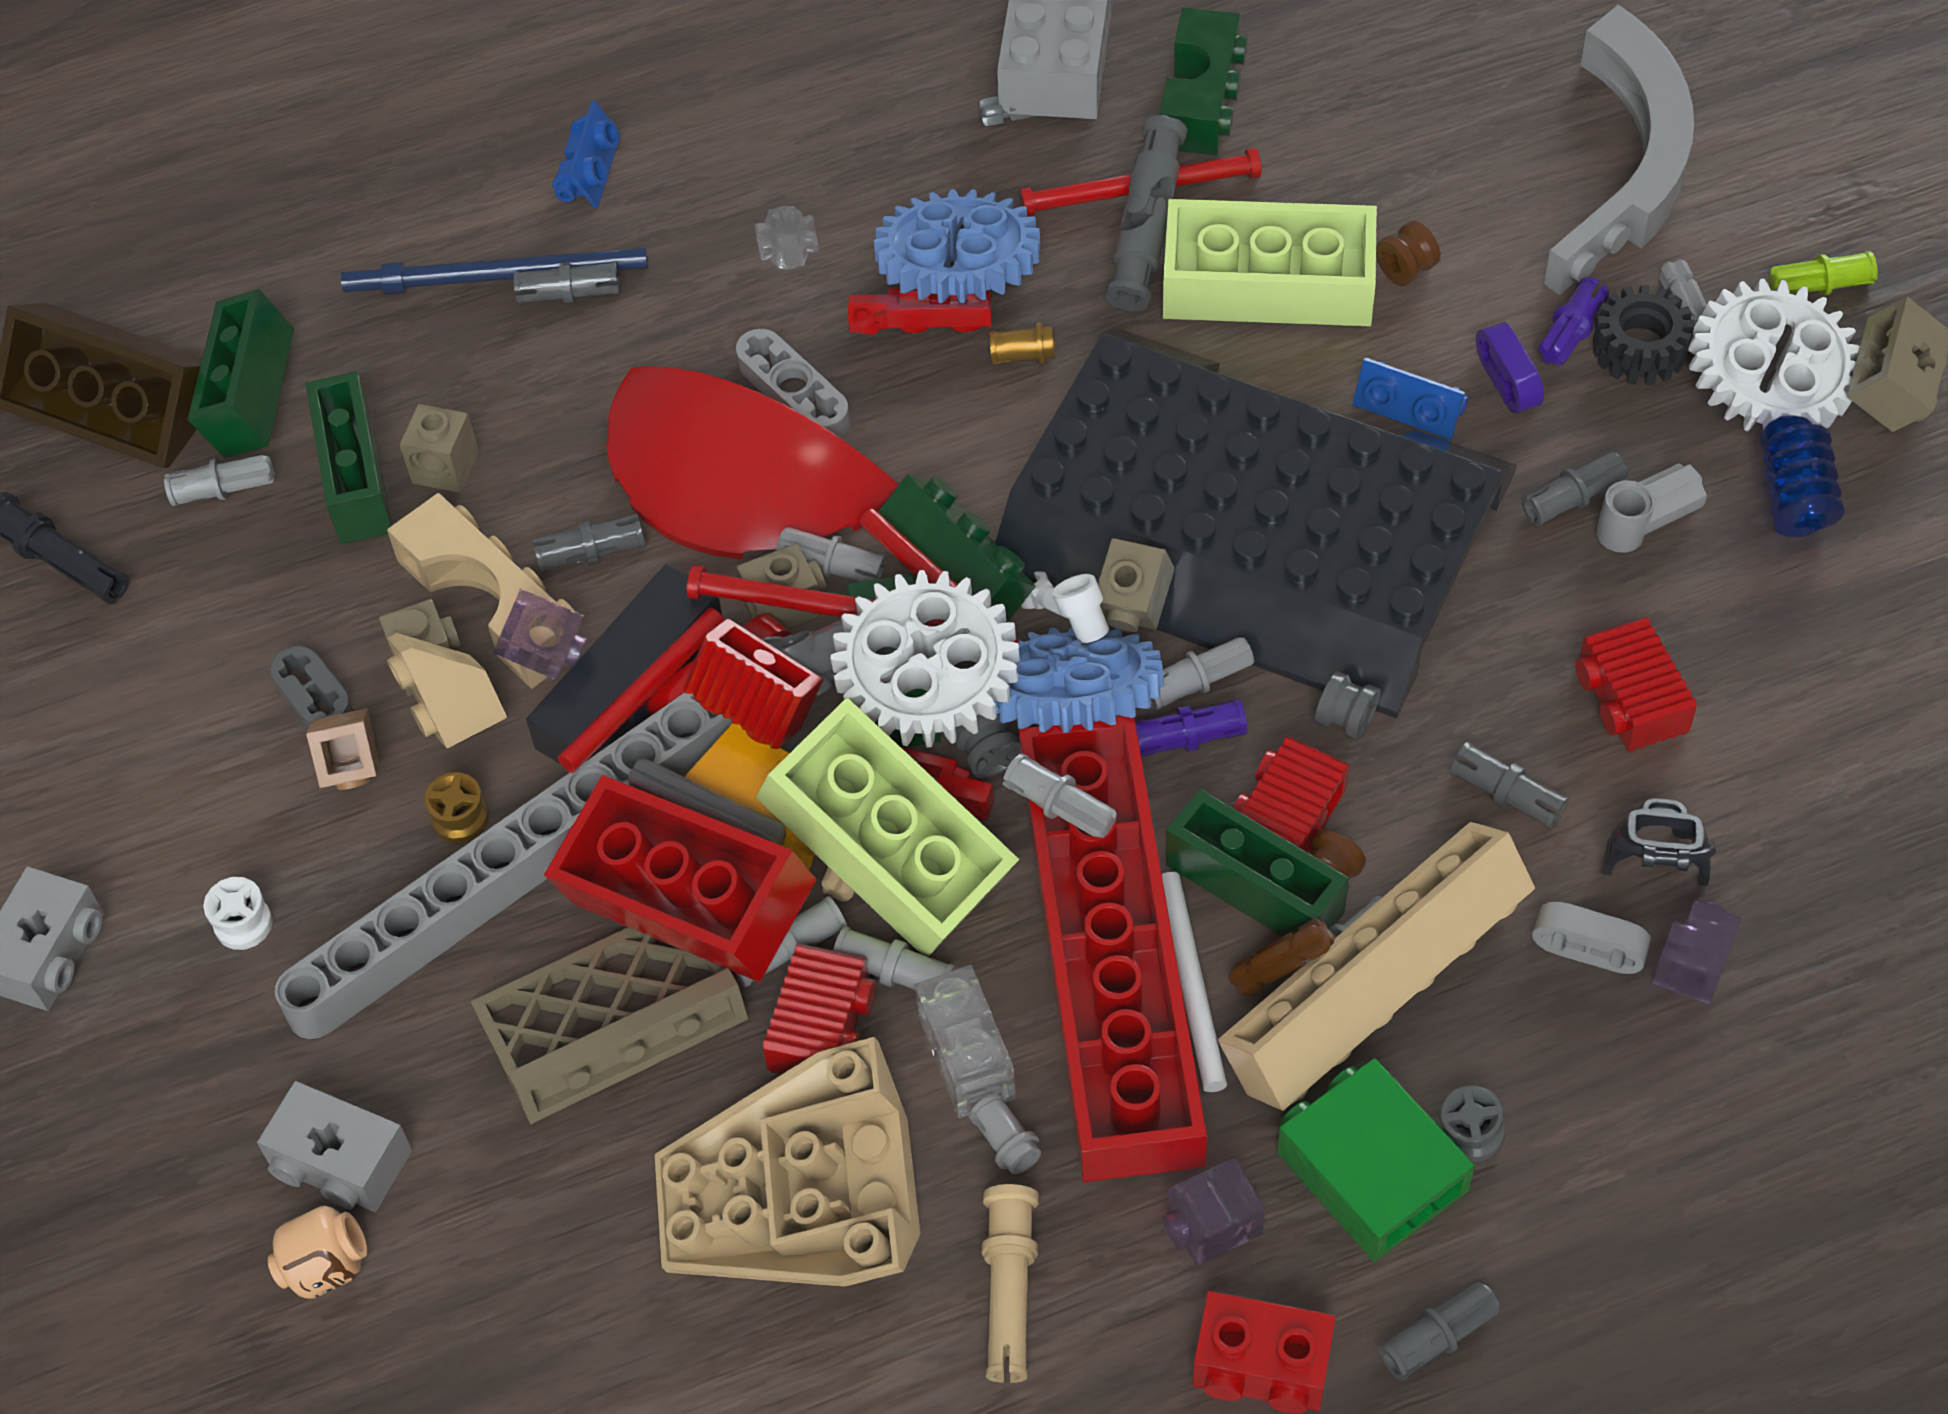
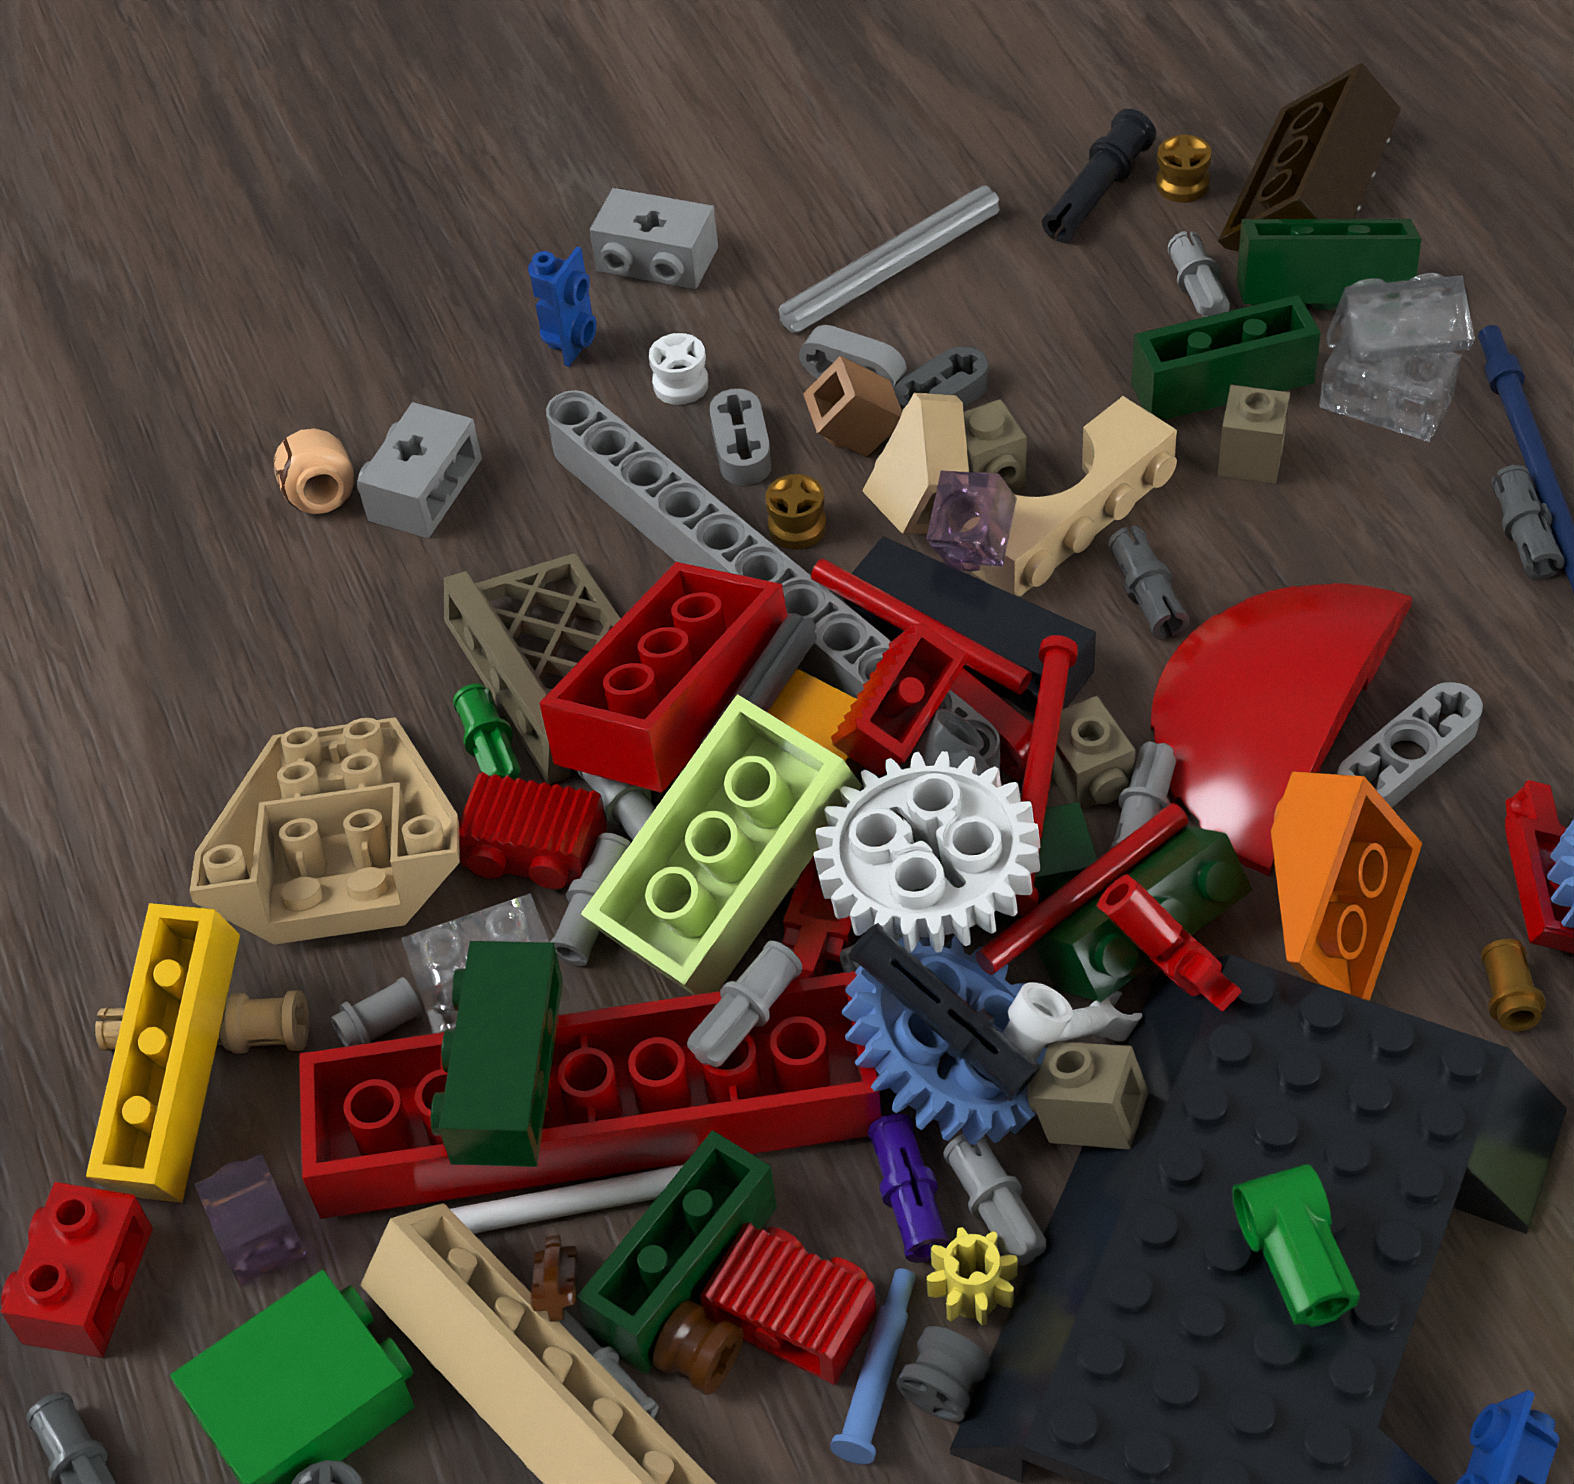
camera: 90 degrees right, 5 degrees down
(53, 476) = (1183, 168): none -> pearl gold wheel
(120, 732) = (888, 259): none -> light grey axle
(142, 1004) = (564, 302): none -> blue hinge
(266, 759) = (830, 342): none -> light grey beam
(340, 861) = (749, 435): none -> light grey beam
(352, 314) = (1403, 317): none -> clear bracket
(394, 348) = (1391, 392): none -> clear brick
(700, 1061) = (485, 732): none -> green axle
(938, 418) = (1339, 878): none -> orange slope
(1018, 515) = (1166, 942): none -> red bar
(1070, 1272) = (164, 1053): none -> yellow brick
(1097, 641) = (946, 1013): none -> black pin
(1105, 968) = (499, 1054): none -> dark green brick
(1264, 454) = (1291, 1225): none -> green piece
(1267, 685) = (972, 1276): none -> light yellow gear
(1359, 760) = (855, 1441): none -> medium blue piece

